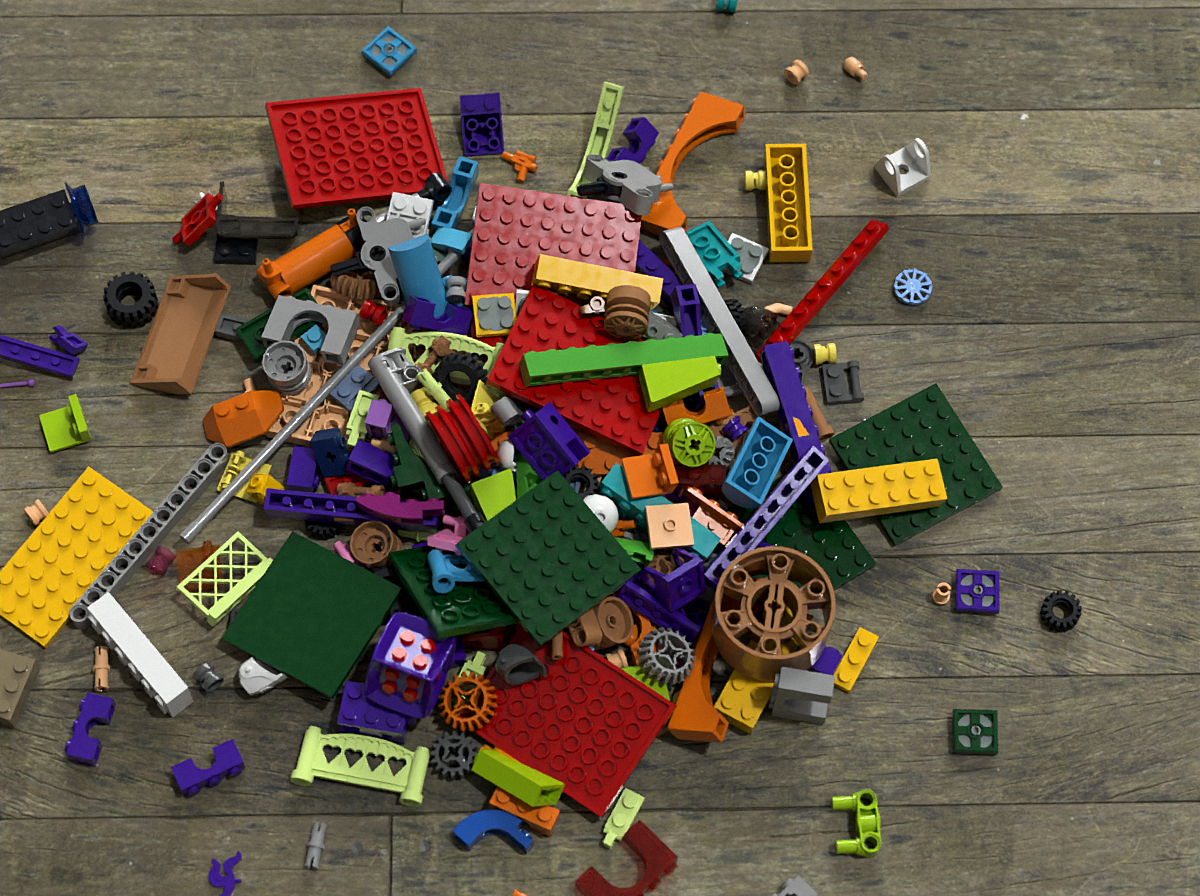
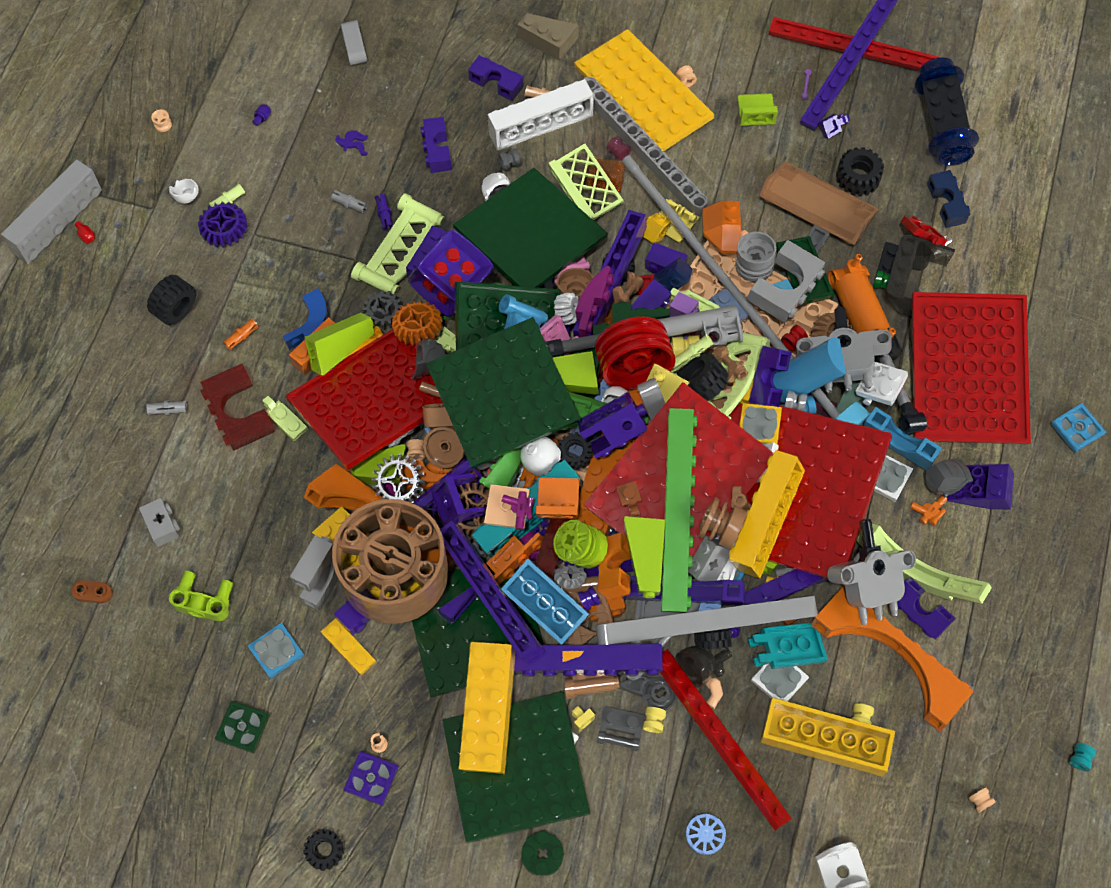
camera: 110 degrees right, 0 degrees up
(154, 198) = (945, 186): none -> dark blue arch
(266, 249) = (879, 279): none -> green wheel
(320, 799) = (384, 212): none -> dark purple pin
(411, 537) = (565, 307): none -> white gear
(484, 149) = (947, 477): none -> dark grey helmet
(624, 408) = (629, 496): none -> dark orange plate
(670, 507) = (520, 506): none -> magenta piece
(847, 416) = (582, 719): none -> light yellow tile
(855, 68) = (977, 865): light nougat cylinder -> none
(884, 729) = (275, 650): none -> light grey piece
(989, 408) = (542, 866): none -> dark green plate

